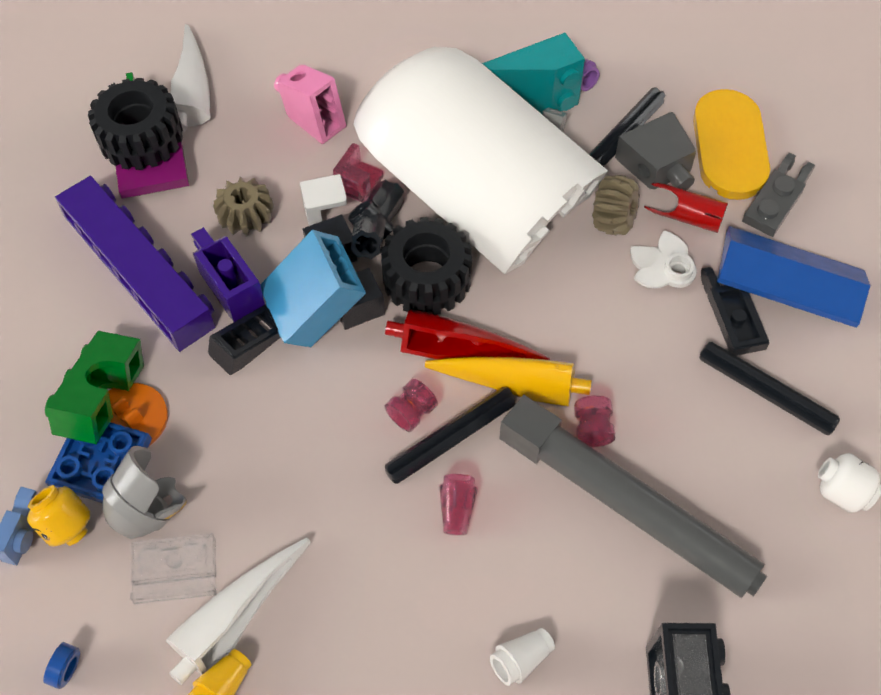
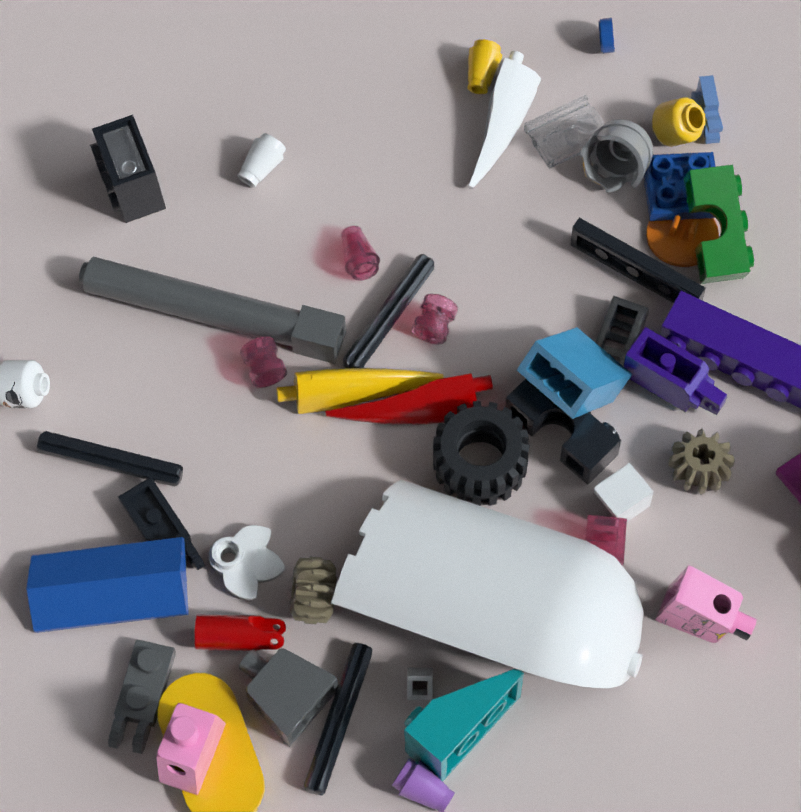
camera: 160 degrees right, 5 degrees up
(195, 388) = (632, 262): none -> black tile
(374, 218) = (556, 477): black piece -> none
(760, 113) = (189, 745): none -> bright pink torso

